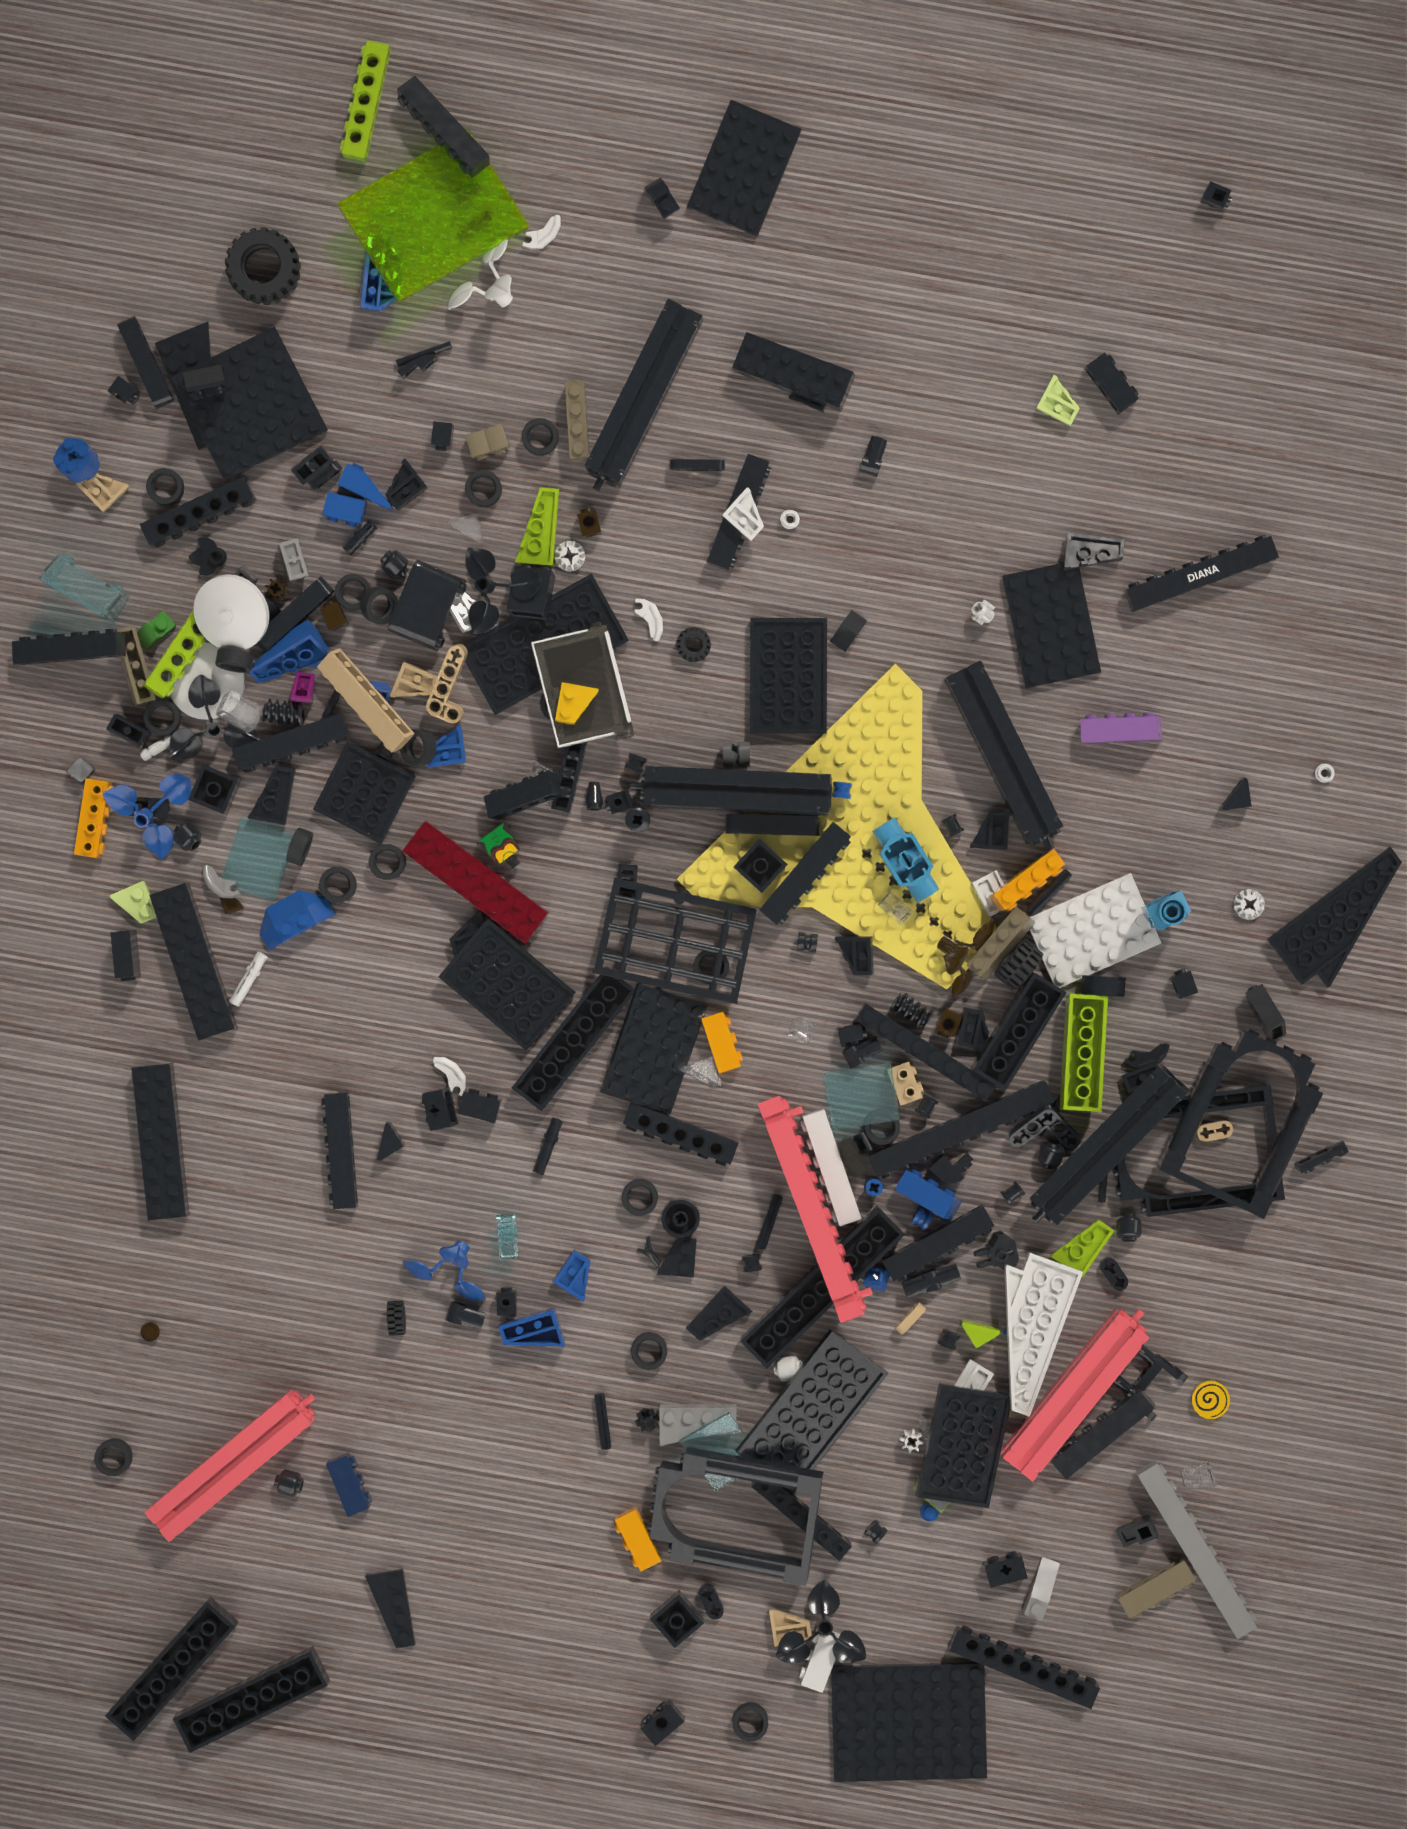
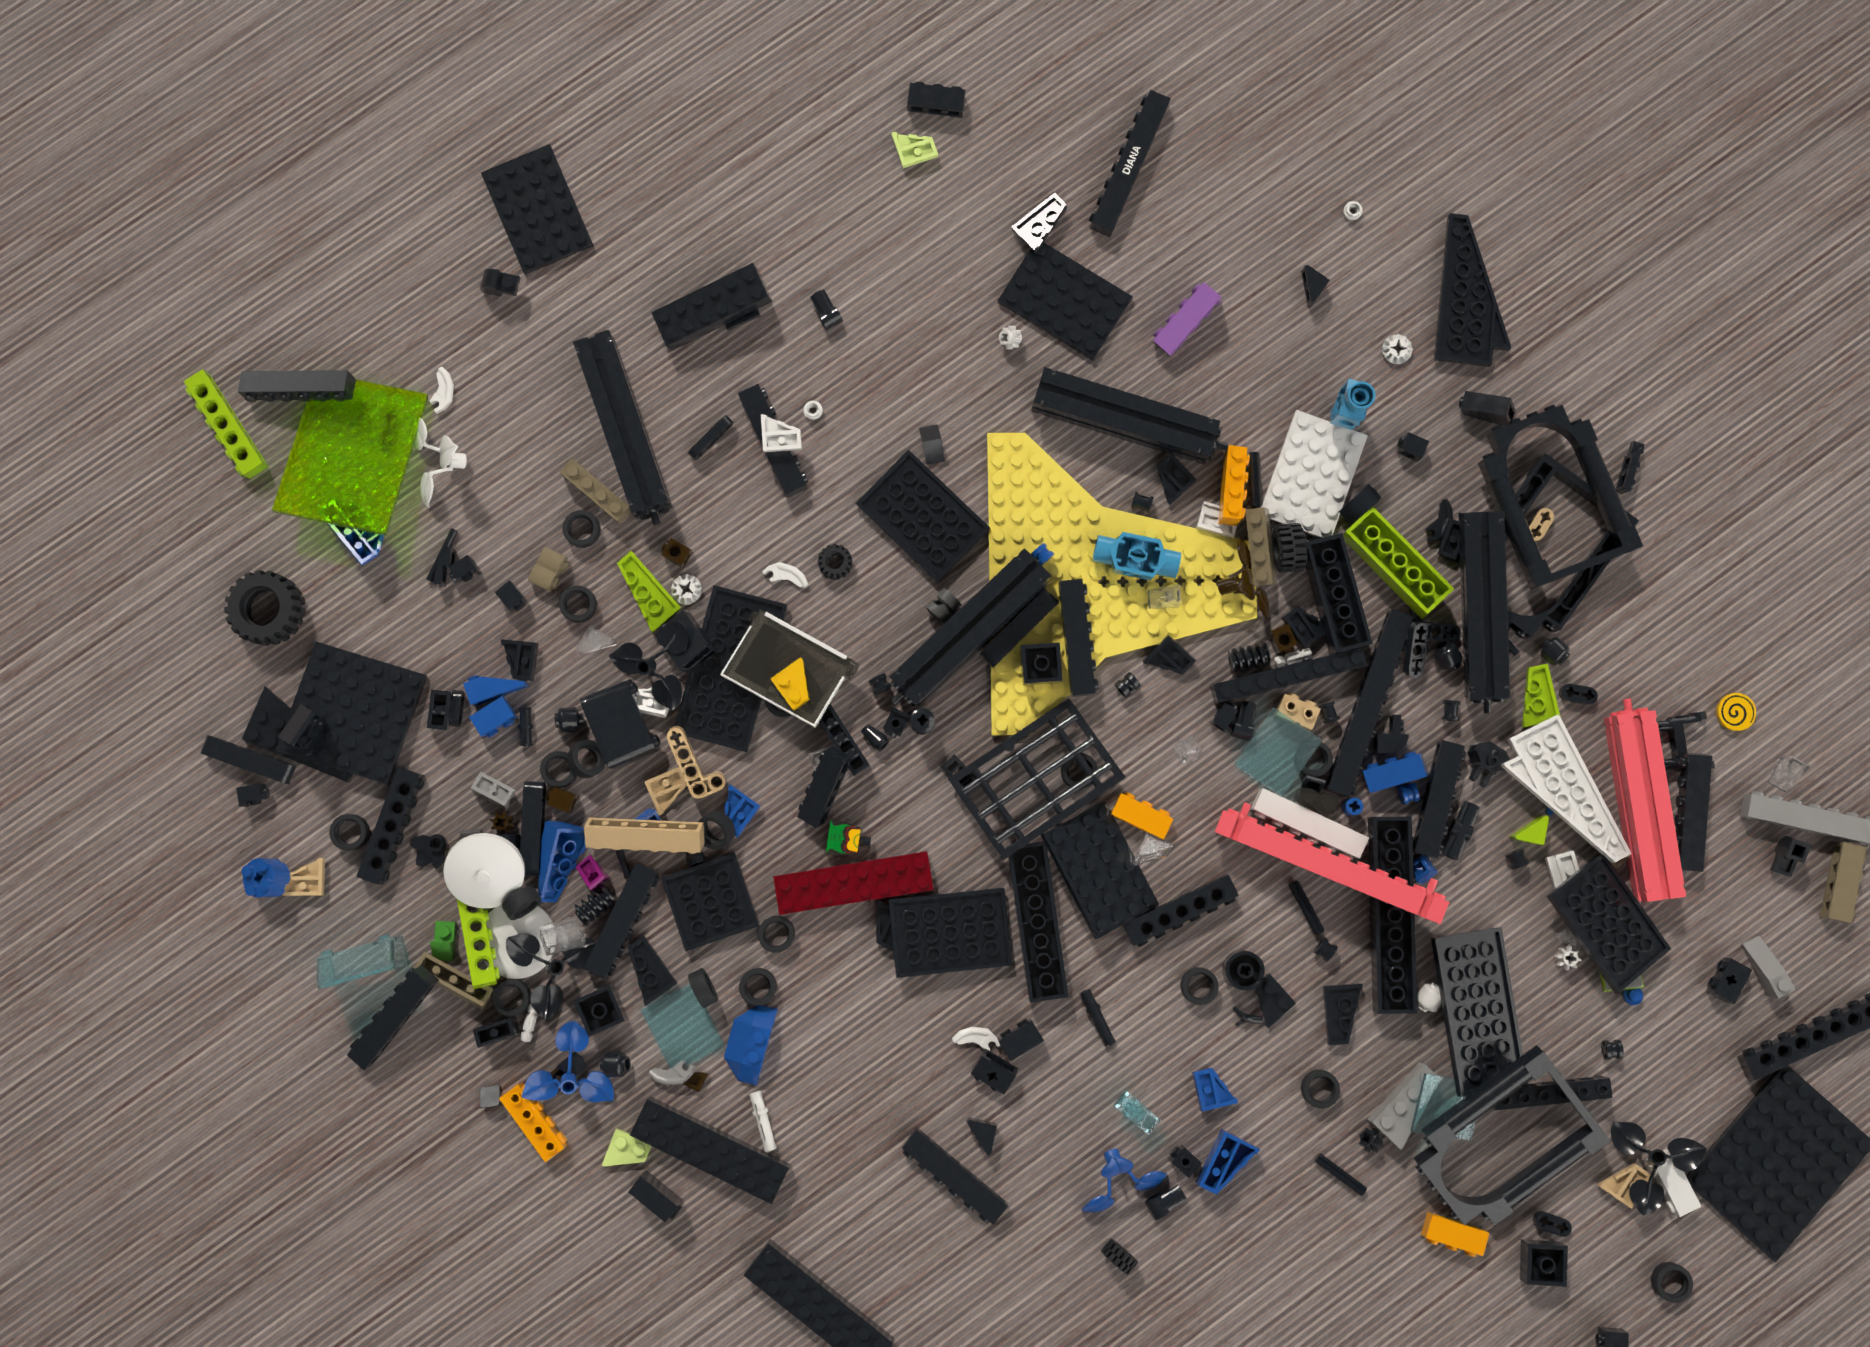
camera: 50 degrees left, 5 degrees down
(428, 381) = (464, 569): none -> black brick
(910, 1318) = (1475, 874): tan beam -> none
(942, 1043) = (1292, 658): none -> white axle

